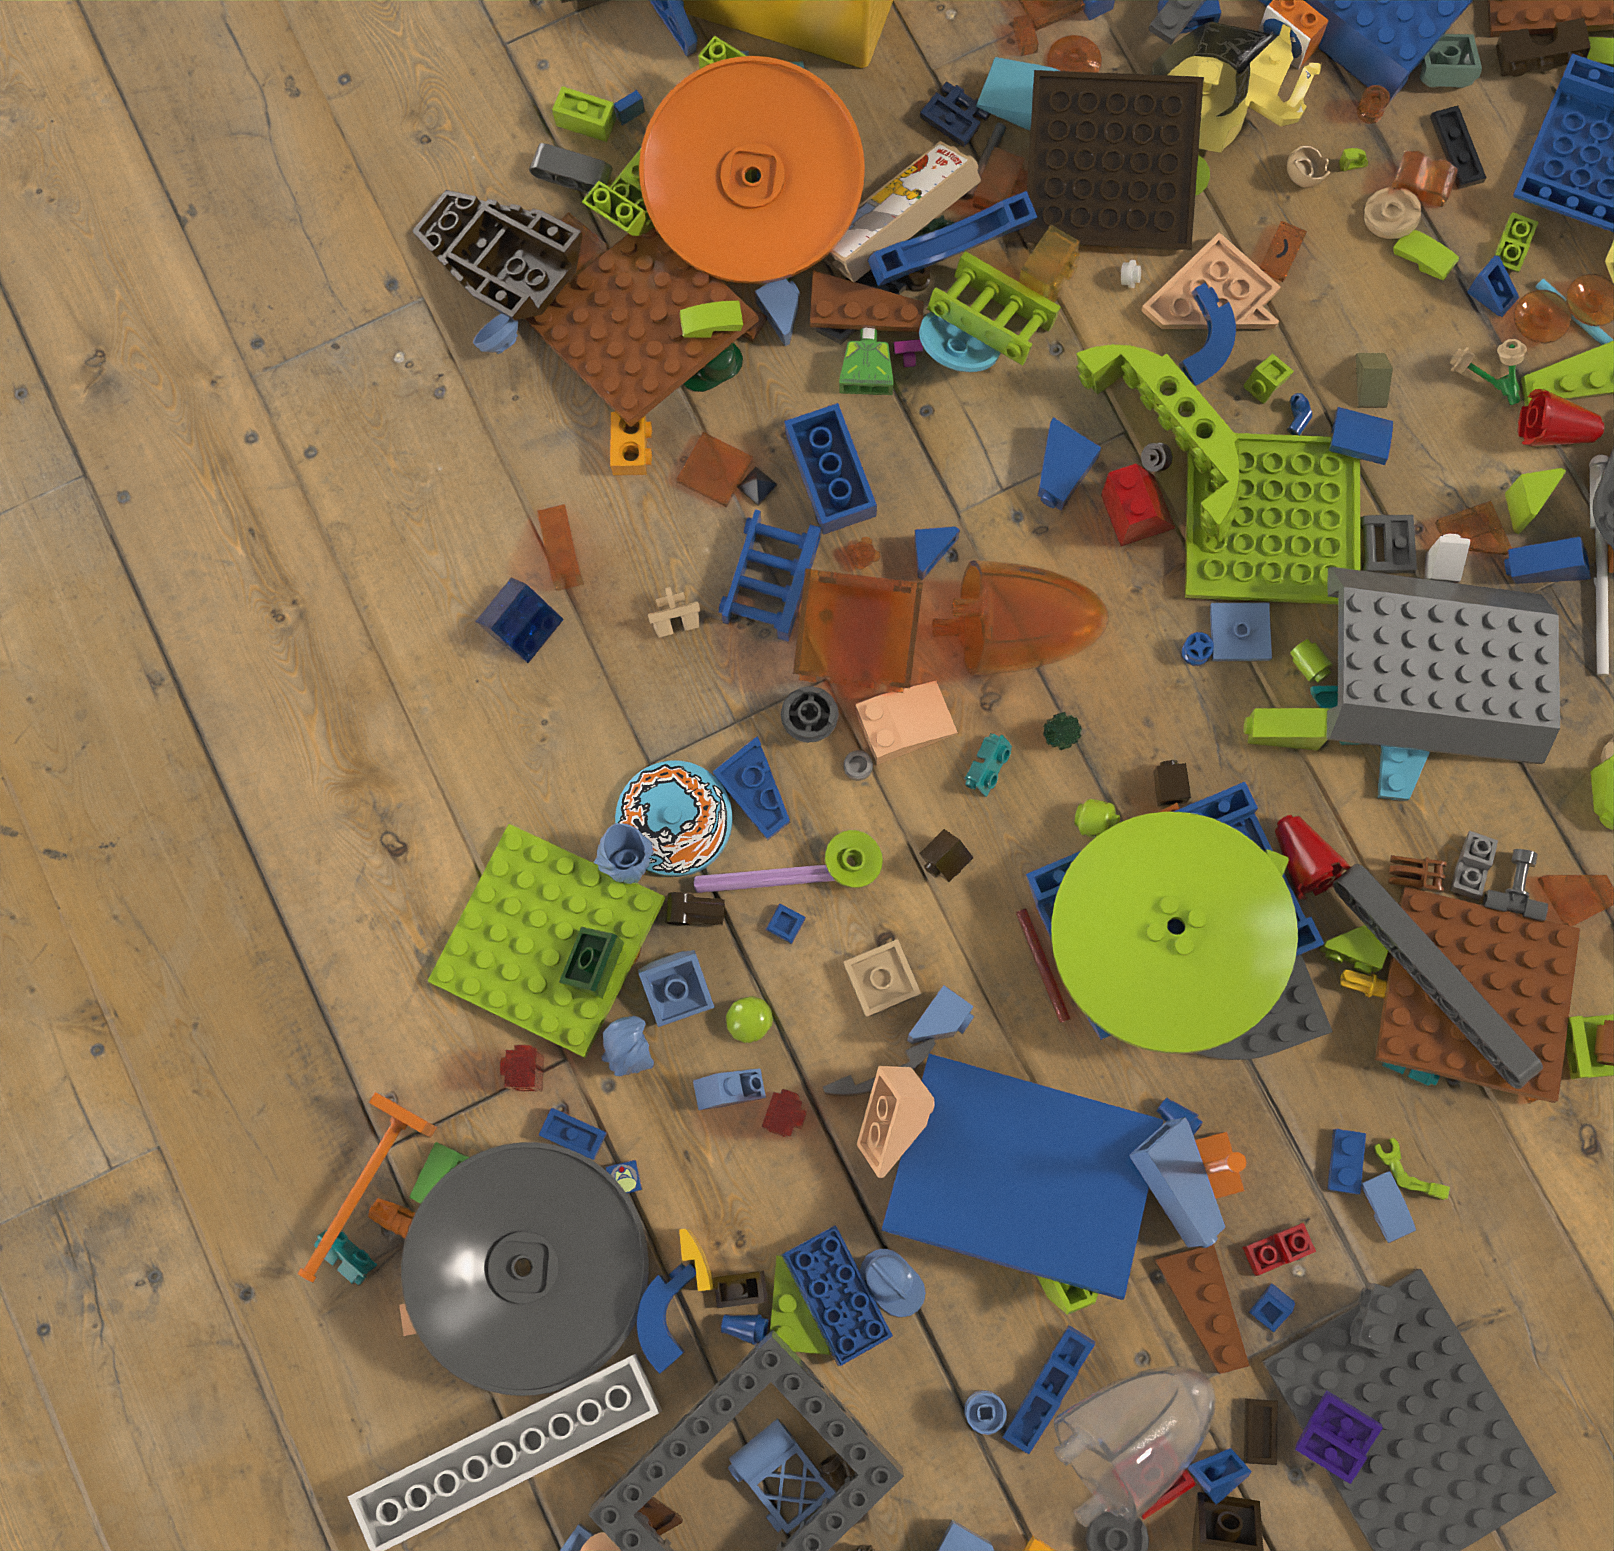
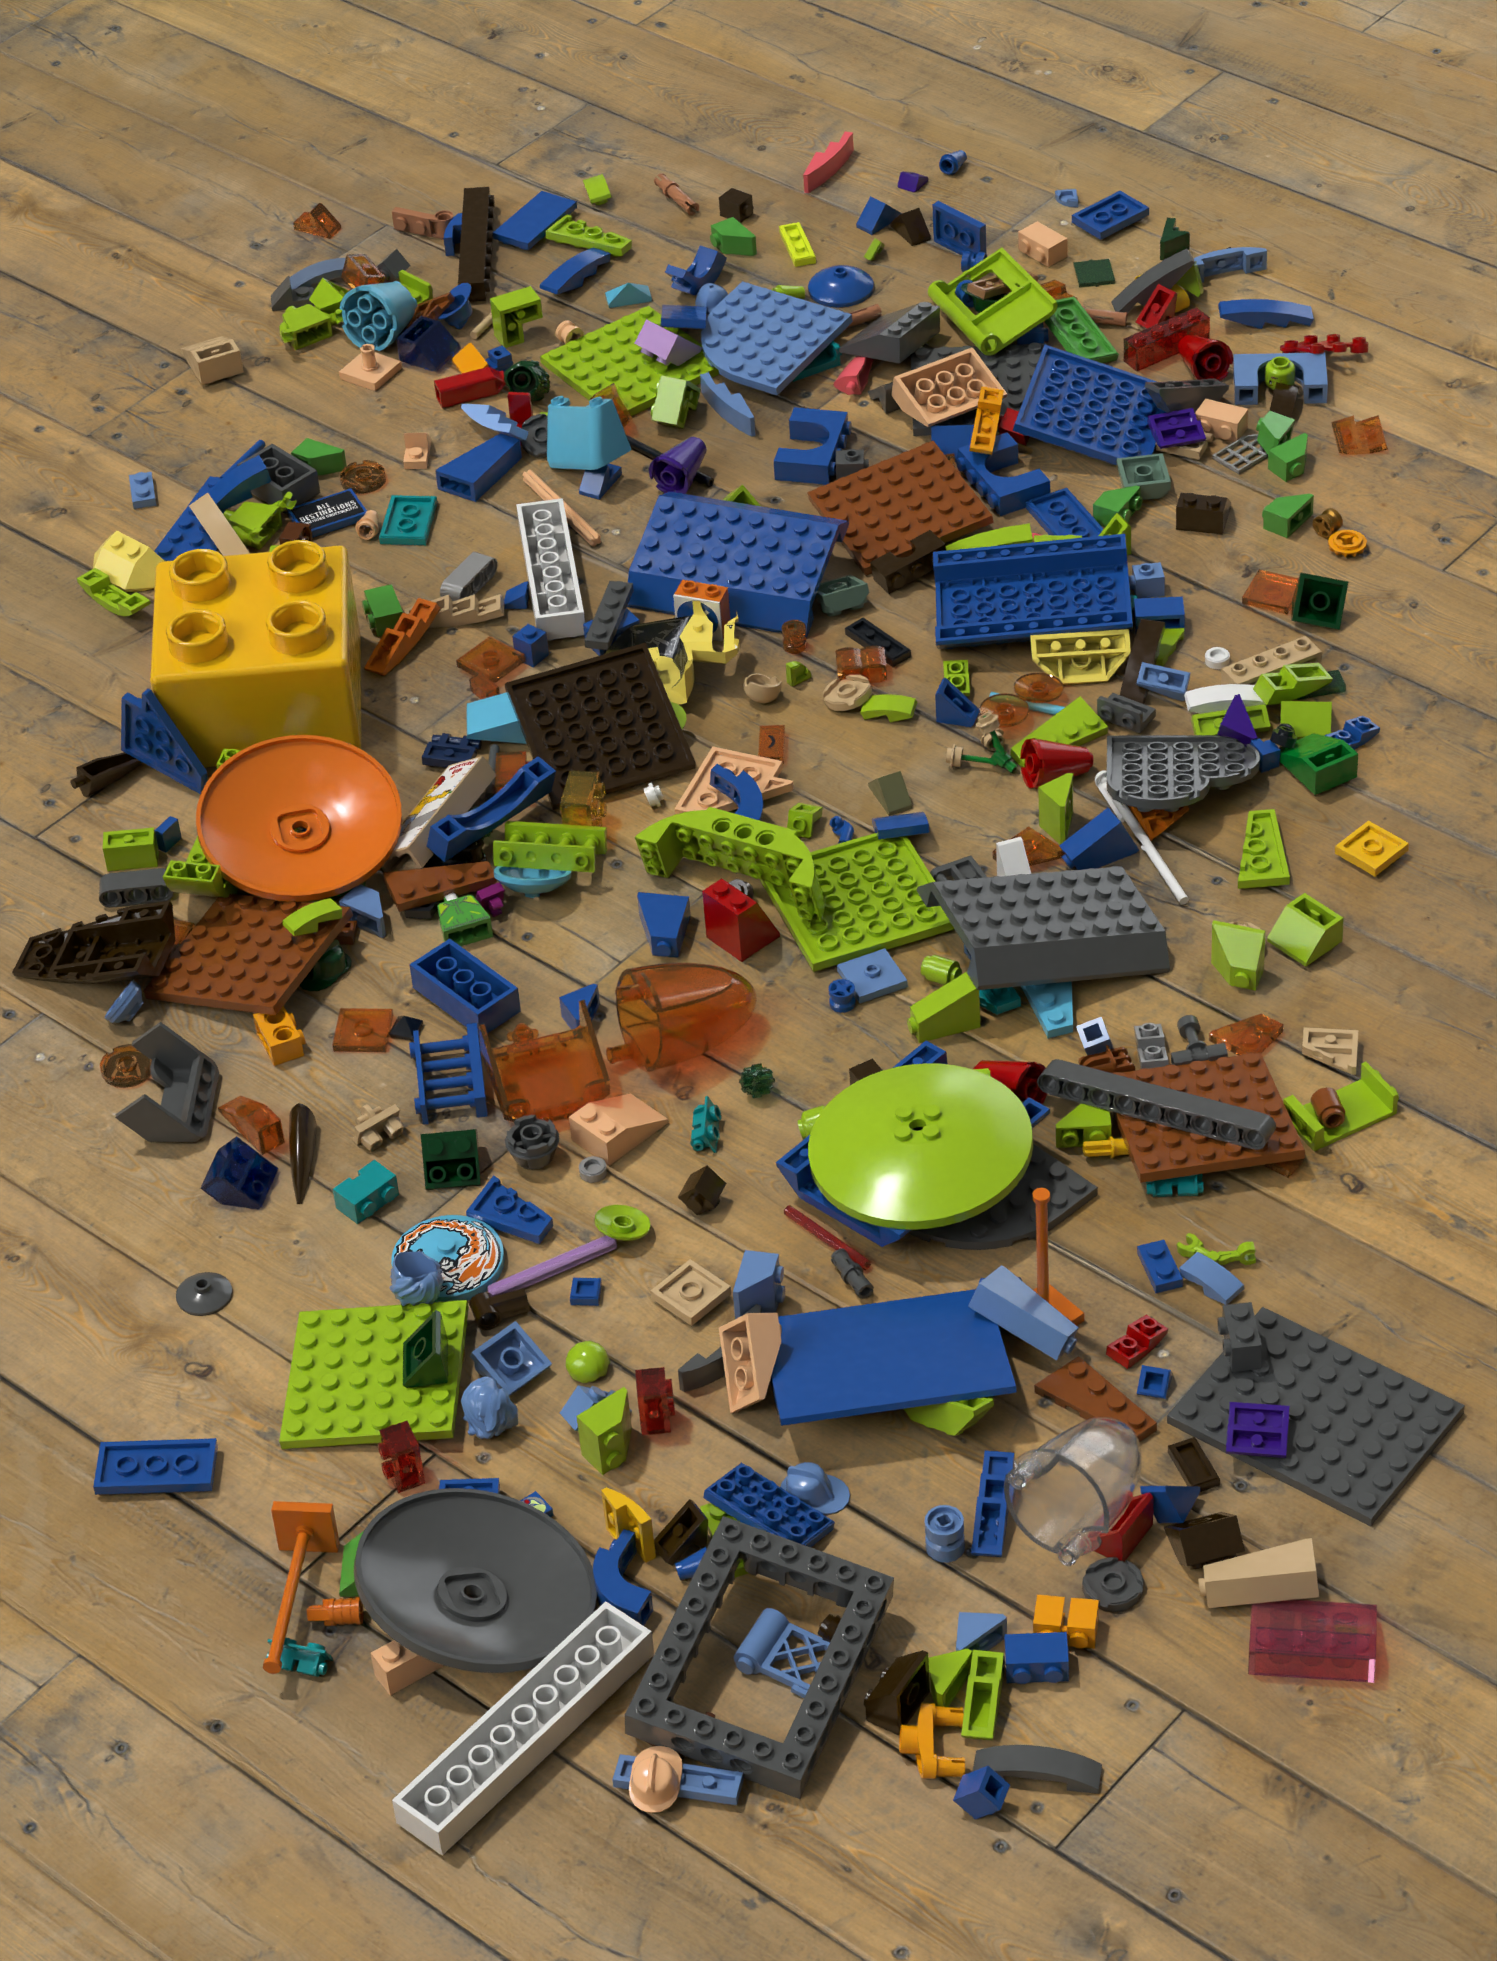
camera: 25 degrees left, 35 degrees down
(305, 957) = (155, 1466): none -> blue plate
(443, 759) = (204, 1294): none -> dark grey dish
(473, 411) = (125, 1067): none -> clear orange tile
(511, 486) = (188, 1089): none -> dark grey windscreen
(593, 607) = (301, 1147): none -> dark brown piece
(630, 699) = (366, 1193): none -> teal brick
(724, 1135) = (606, 1431): none -> lime slope
(727, 691) = (451, 1159): none -> dark green slope
(1045, 1029) = (852, 1273): none -> dark grey pin
(1420, 840) = (1094, 1036): none -> medium blue brick

